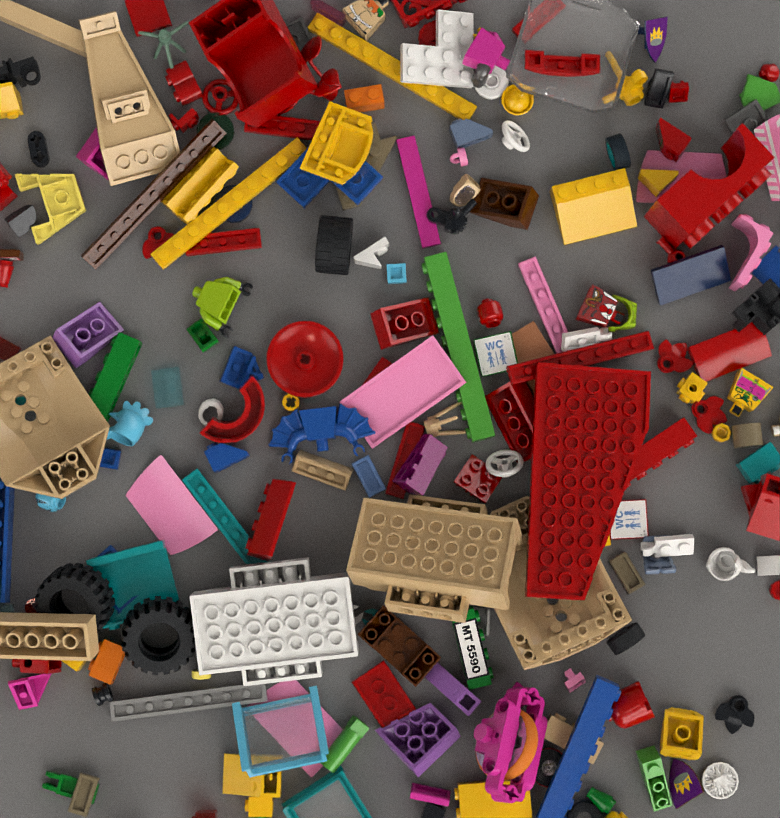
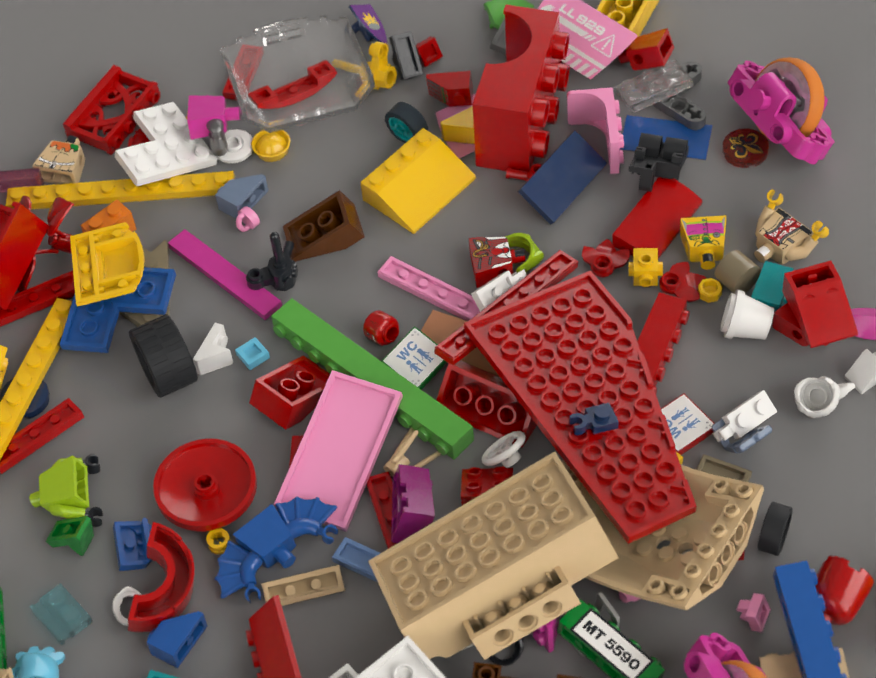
camera: 25 degrees left, 30 degrees down
(464, 191) = (265, 243): tan rock -> none
(512, 138) = (290, 173): white piece -> none
(569, 497) = (597, 418): none -> dark blue plate
(725, 474) = (746, 317): none -> white piece

